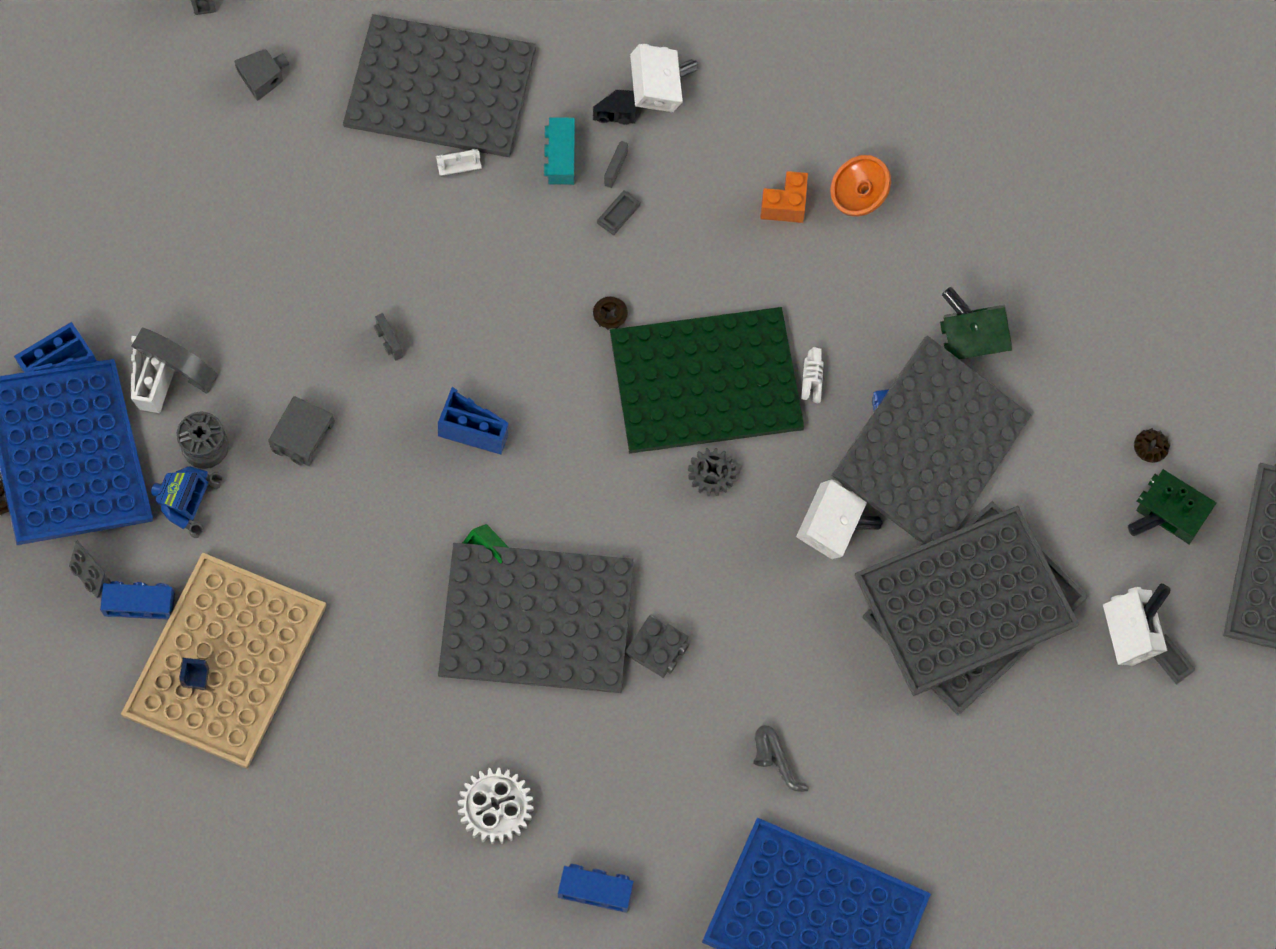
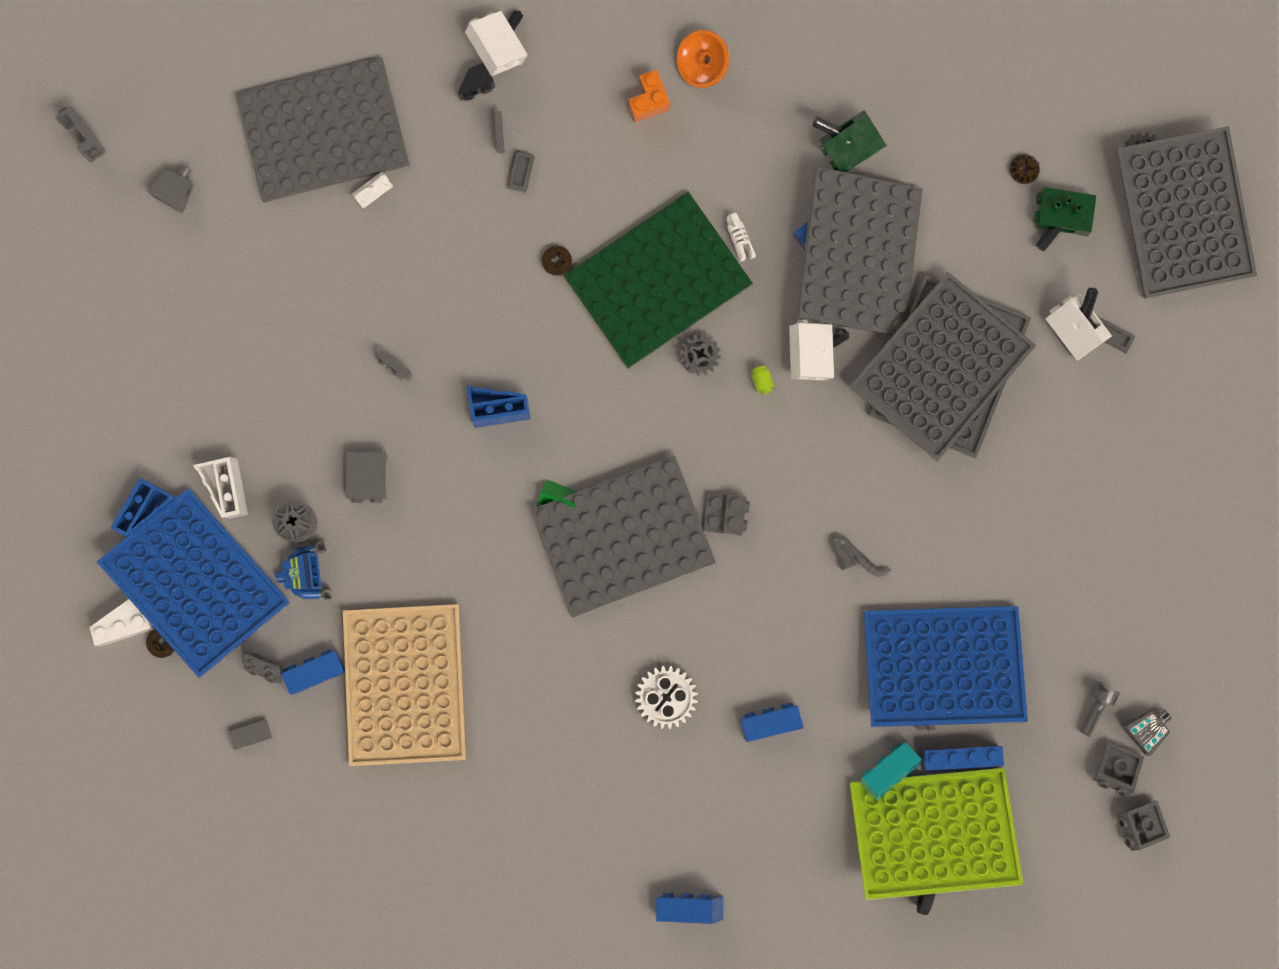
camera: 25 degrees left, 15 degrees up
(36, 634) = (250, 734): none -> dark grey tile
(175, 357) = (238, 467): dark grey slope -> none
(194, 673) = (389, 710): dark blue panel -> none
(560, 150) = (449, 141): teal brick -> none
(765, 527) = (762, 380): none -> lime brick

